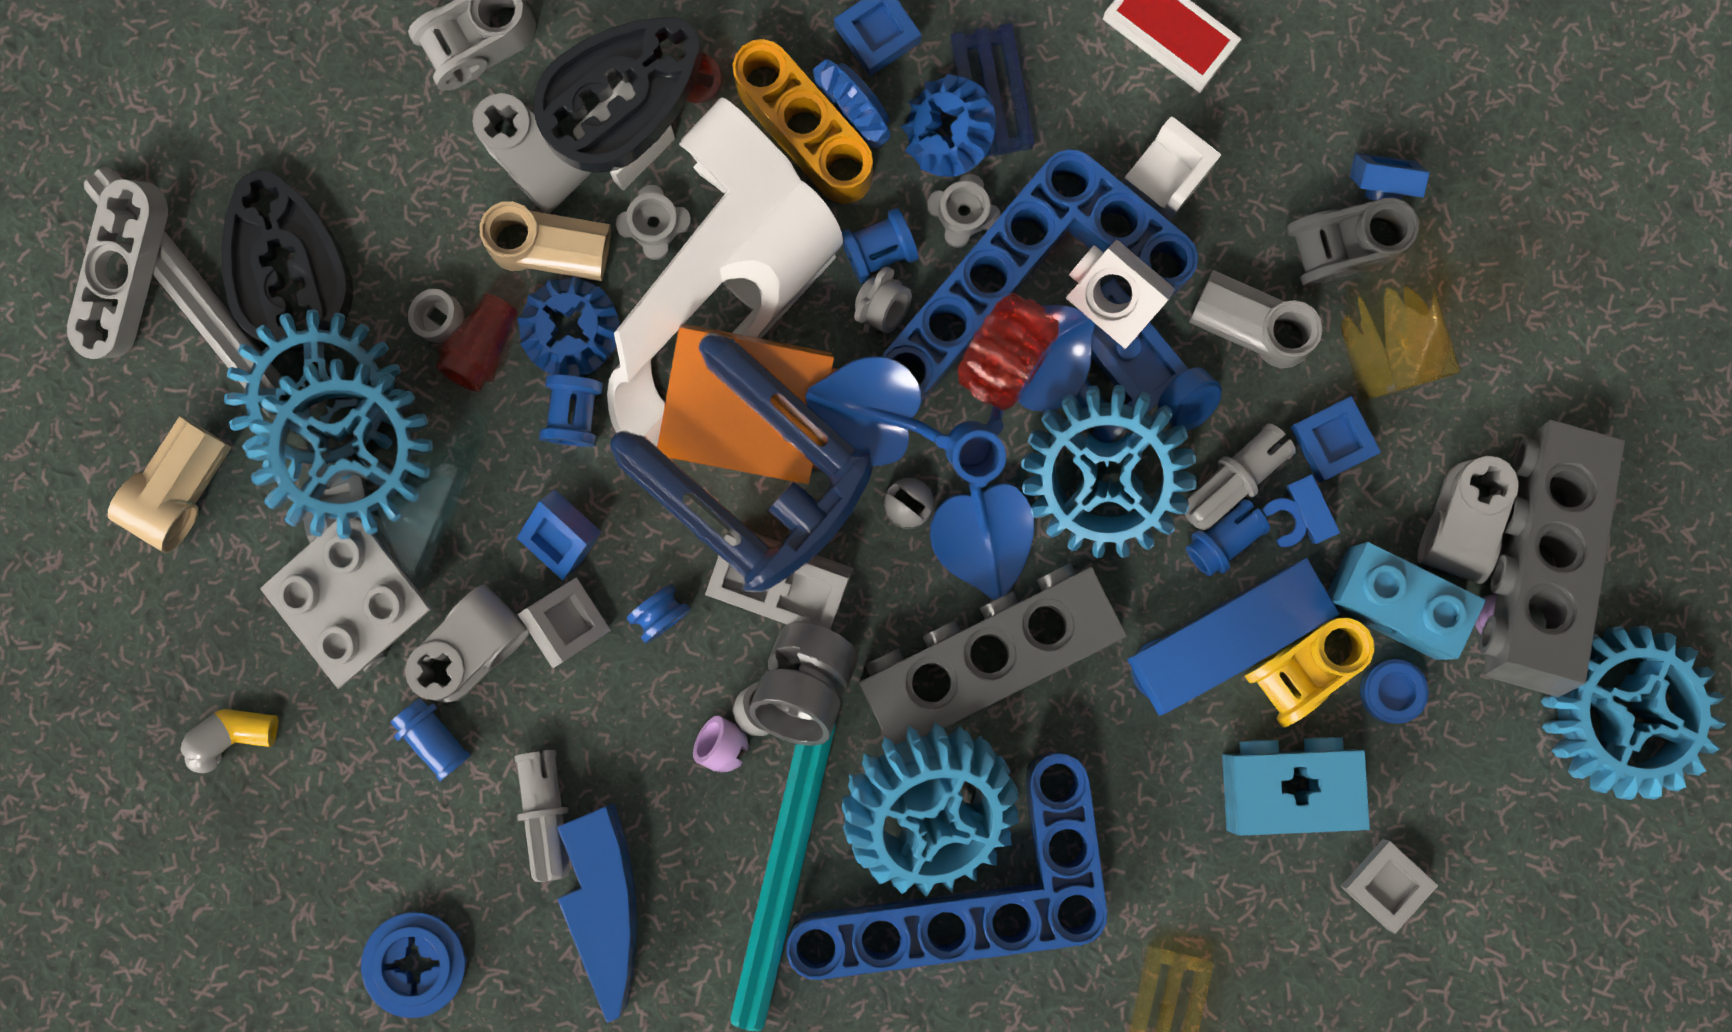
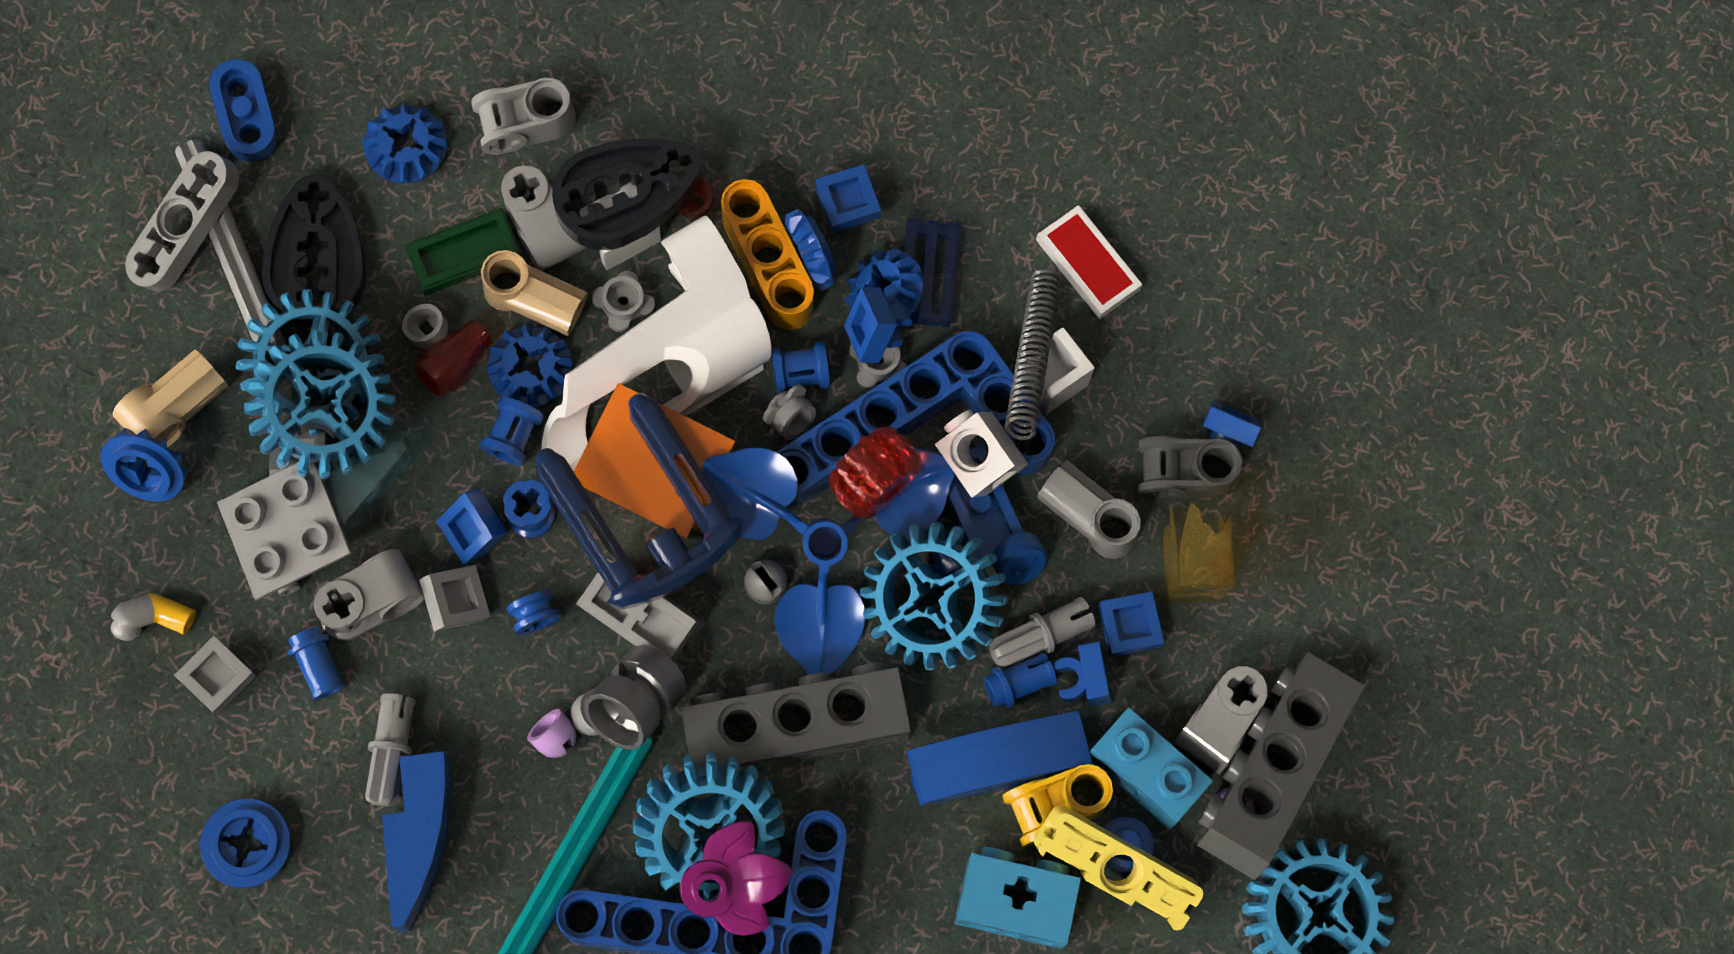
camera: 10 degrees right, 10 degrees down
(146, 565) = (131, 475): none -> blue gear
(151, 119) = (243, 113): none -> blue plate
(320, 785) = (215, 675): none -> light grey plate
(360, 127) = (411, 163): none -> blue gear
(449, 214) = (460, 250): none -> dark green tile
(623, 514) = (528, 493): none -> blue bush
(953, 172) = (873, 324): none -> blue tile
(986, 860) = (743, 879): none -> magenta plate
(1155, 145) = (1023, 351): none -> dark grey piece
(1366, 711) = (1090, 848): none -> light yellow piece

